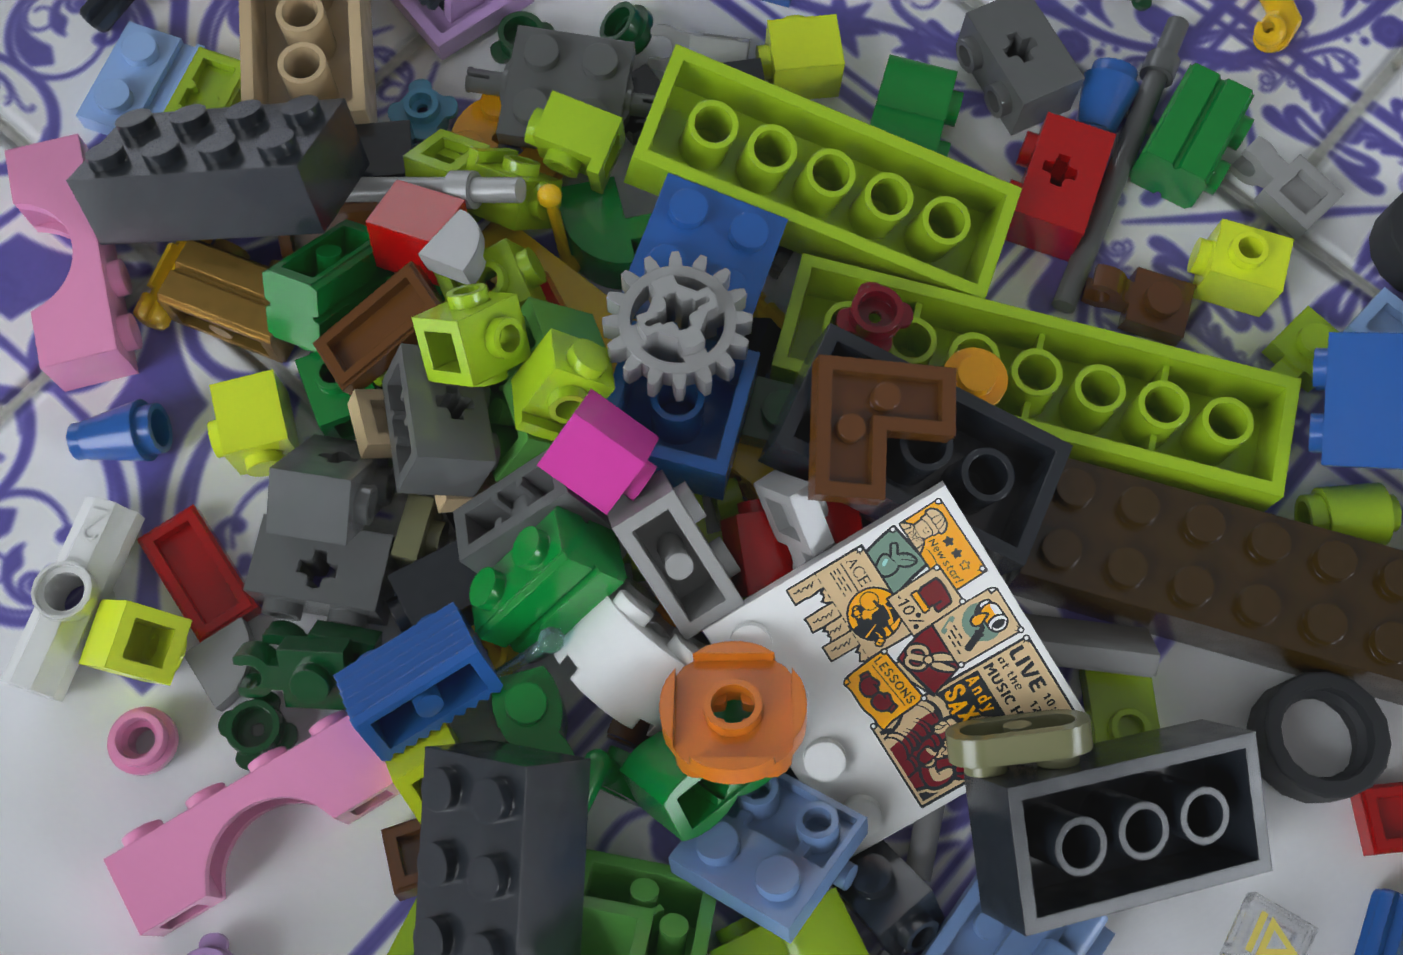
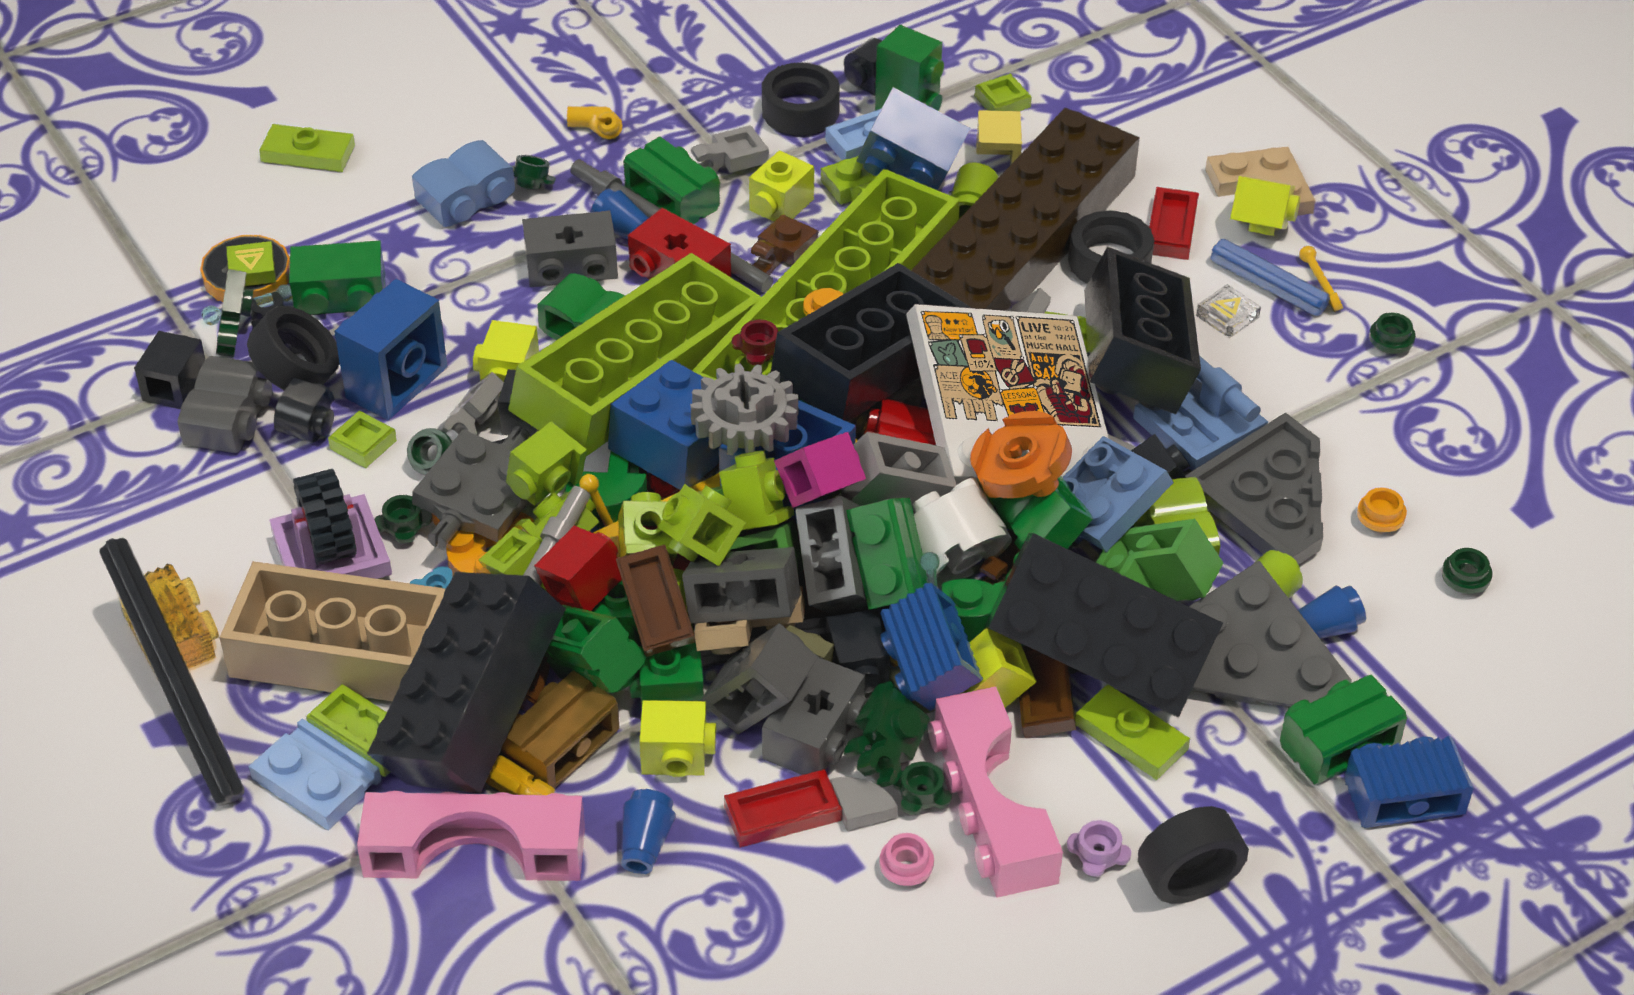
camera: 70 degrees left, 25 degrees down
(55, 636) = (799, 891): white piece -> none
(136, 641) = (832, 831): neon yellow brick -> none
(456, 250) = (625, 522): light grey tile -> none
(793, 517) = (896, 402): light grey plate -> none
(859, 407) = (848, 327): reddish brown plate -> none
(993, 743) = (1079, 342): olive plate -> none

